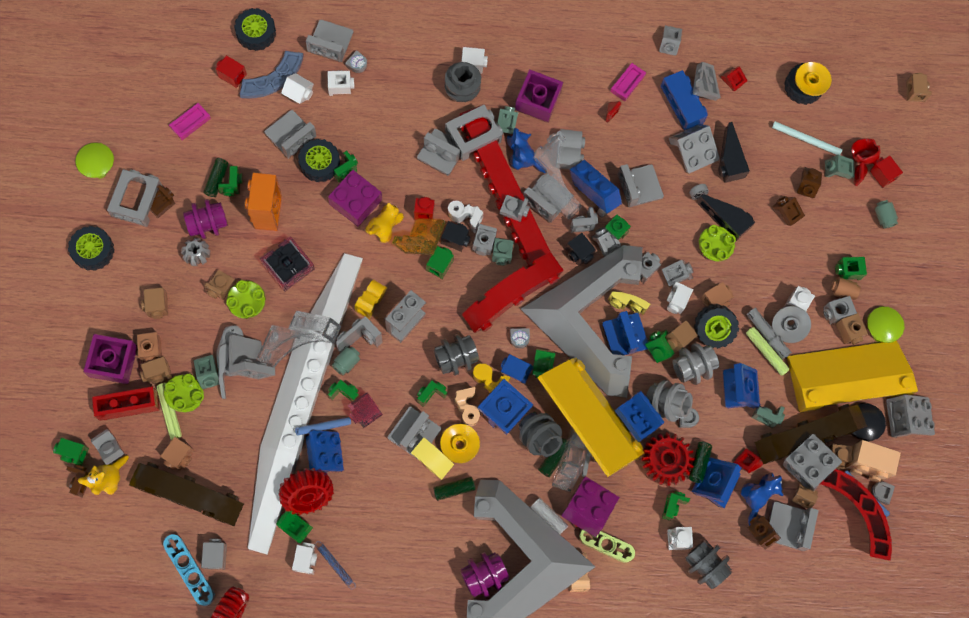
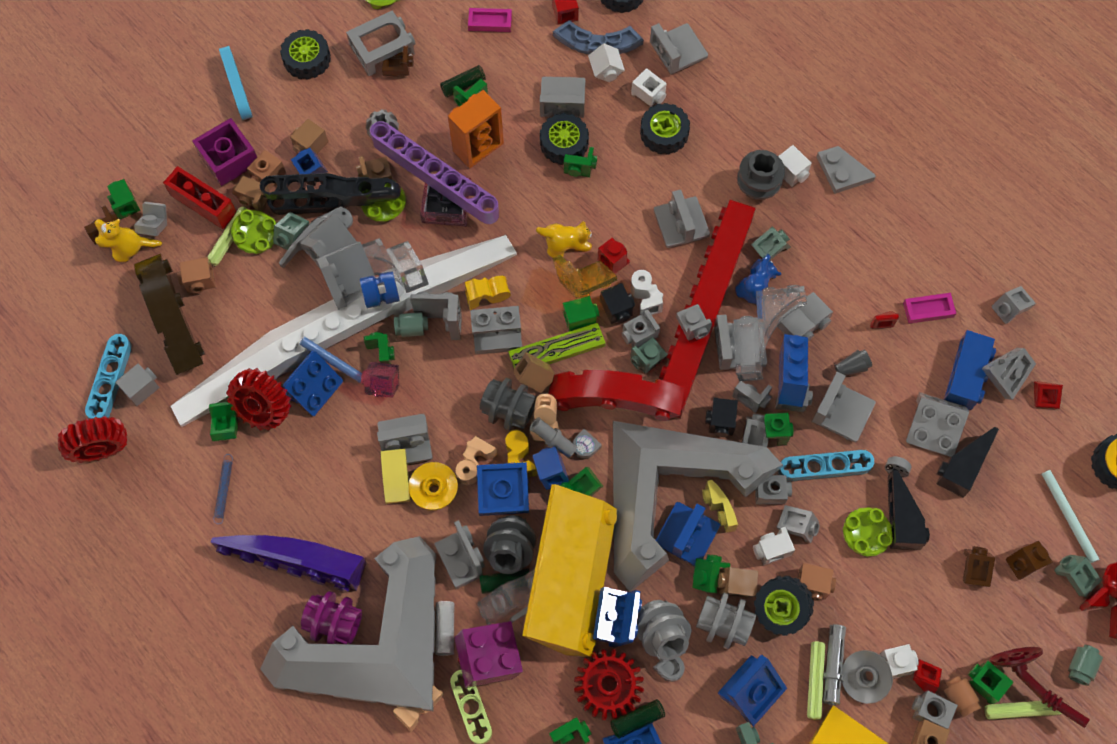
camera: 55 degrees right, 5 degrees down
(64, 308) = (235, 83): none -> medium azure beam
(175, 319) = (308, 162): none -> blue brick
(205, 219) = (416, 104): magenta piece -> none
(214, 323) = (337, 189): none -> black piece
(258, 248) = (438, 181): none -> medium lavender beam
(278, 365) = (343, 271): none -> light grey bracket
(305, 558) = (202, 457): white brick -> none
(309, 361) = (371, 291): none -> blue wheel
(355, 198) = (561, 195): magenta brick -> none
(357, 62) = (683, 85): tile -> none
(374, 100) = (665, 128): none -> black wheel
(425, 560) = (297, 557): none -> dark purple wedge
(426, 393) = (453, 416): green bracket -> none
(446, 295) = (562, 346): none -> lime tile
(451, 322) = (534, 372): none -> medium nougat brick
(462, 488) = (398, 532): dark green piece -> none
(465, 148) = (740, 242): light grey panel -> none
(485, 343) = (546, 409): none -> light nougat leg
(502, 37) = (843, 170): none -> light grey wing
(502, 350) = (553, 437): none -> light grey pin
(517, 467) = (459, 557): none -> light grey bracket
(538, 95) = (823, 245): magenta brick -> none
(620, 152) = (855, 363): none -> dark grey cone
(660, 226) = (825, 462): none -> medium azure beam
(821, 295) = (927, 676): none -> red slope
(855, 242) = (1018, 661): none -> dark red dish
(879, 266) = (1018, 709): none -> yellowish green axle

